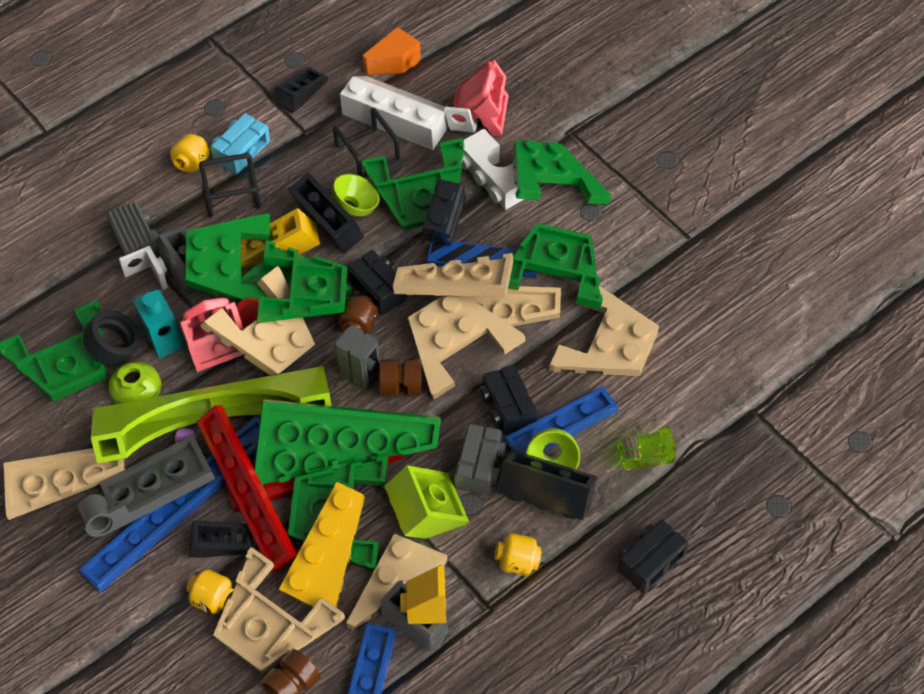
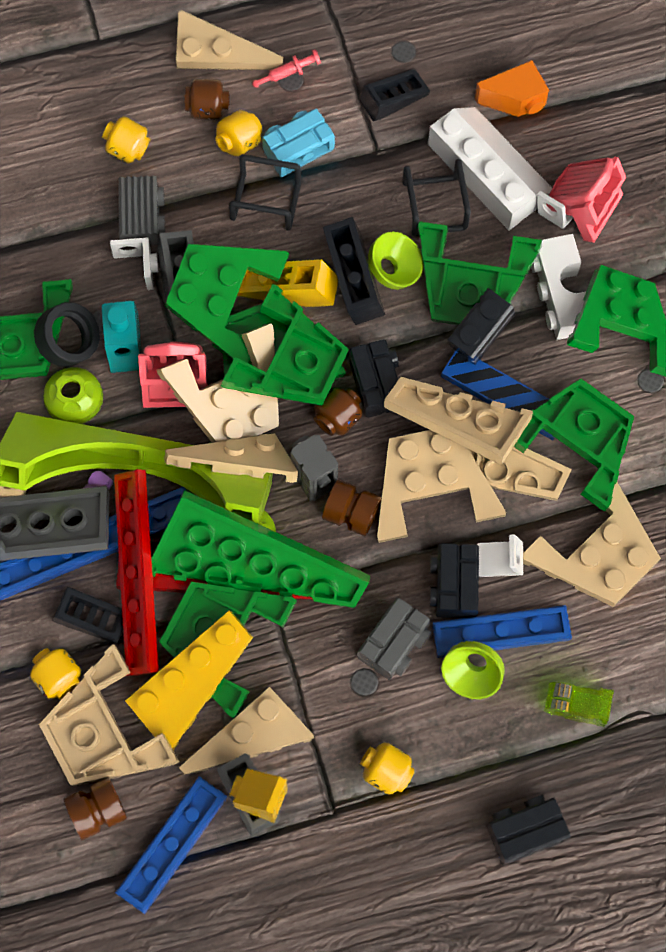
camera: 20 degrees right, 15 degrees up
(100, 188) = (126, 139): none -> yellow head
(141, 105) = (210, 47): none -> tan wing
(153, 139) = (206, 99): none -> reddish brown head
(211, 97) = (288, 69): none -> coral piece
(248, 310) = (218, 362): red tile -> none
(292, 370) = (241, 456): none -> tan wing
(425, 502) = (317, 666): lime slope -> none
(537, 370) = (501, 558): none -> white bracket
(547, 485) = (452, 702): black brick -> none

